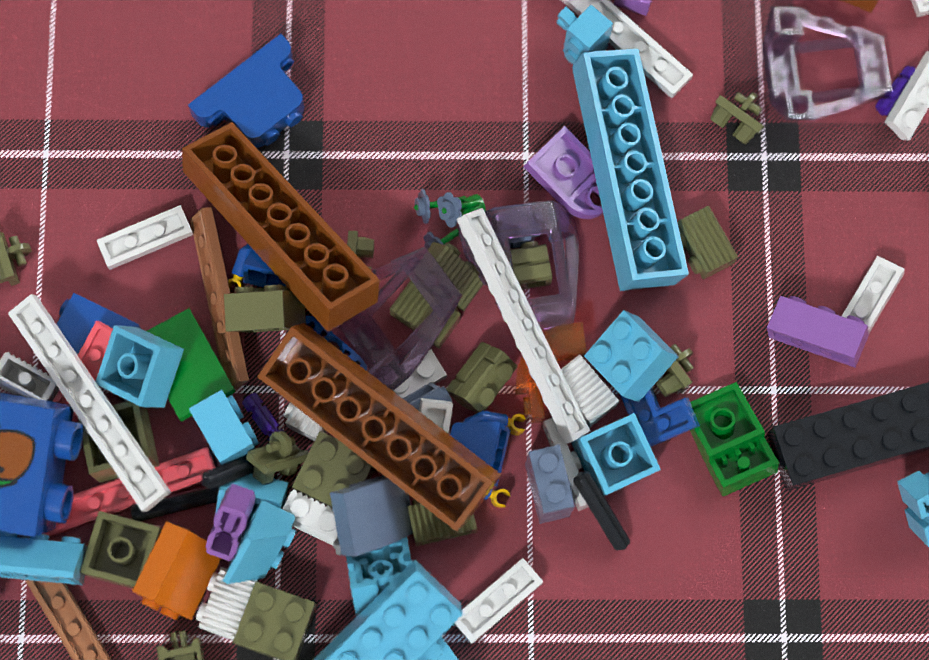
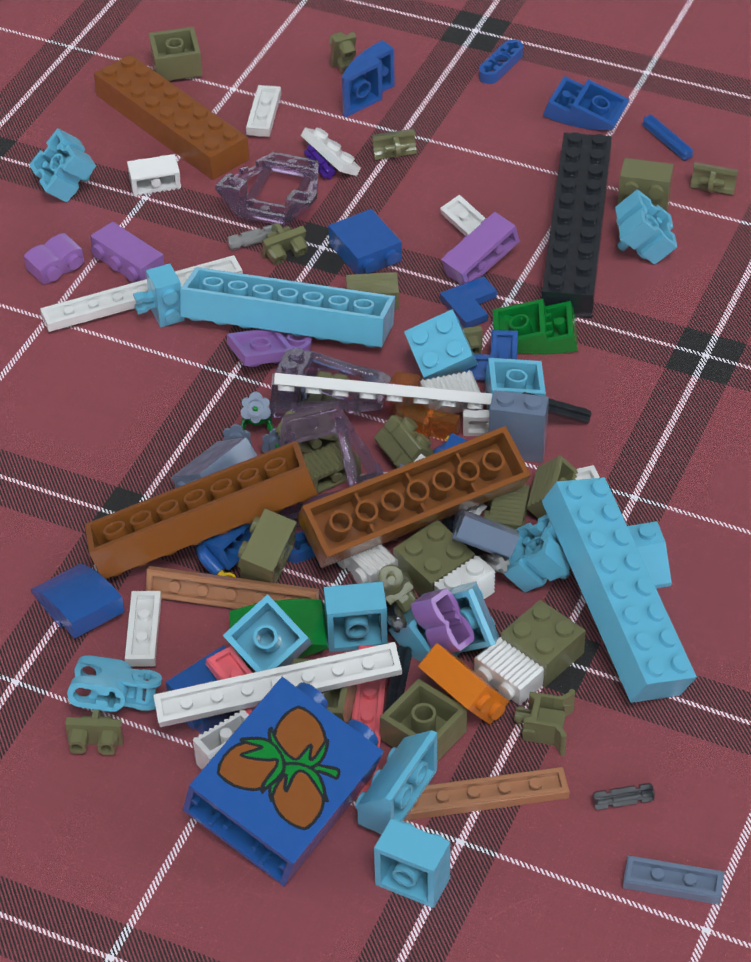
camera: 60 degrees left, 30 degrees down
(55, 250) = (113, 685): none -> medium azure piece
(151, 160) = (79, 599): none -> blue slope
(254, 96) = (64, 511): blue brick -> none
(360, 207) = (215, 458): none -> sand blue brick
(485, 553) = (546, 476): none -> olive brick
(736, 76) = (248, 238): none -> light grey axle
(742, 342) = (466, 301): none -> blue tile
(780, 201) = (365, 242): none -> blue brick

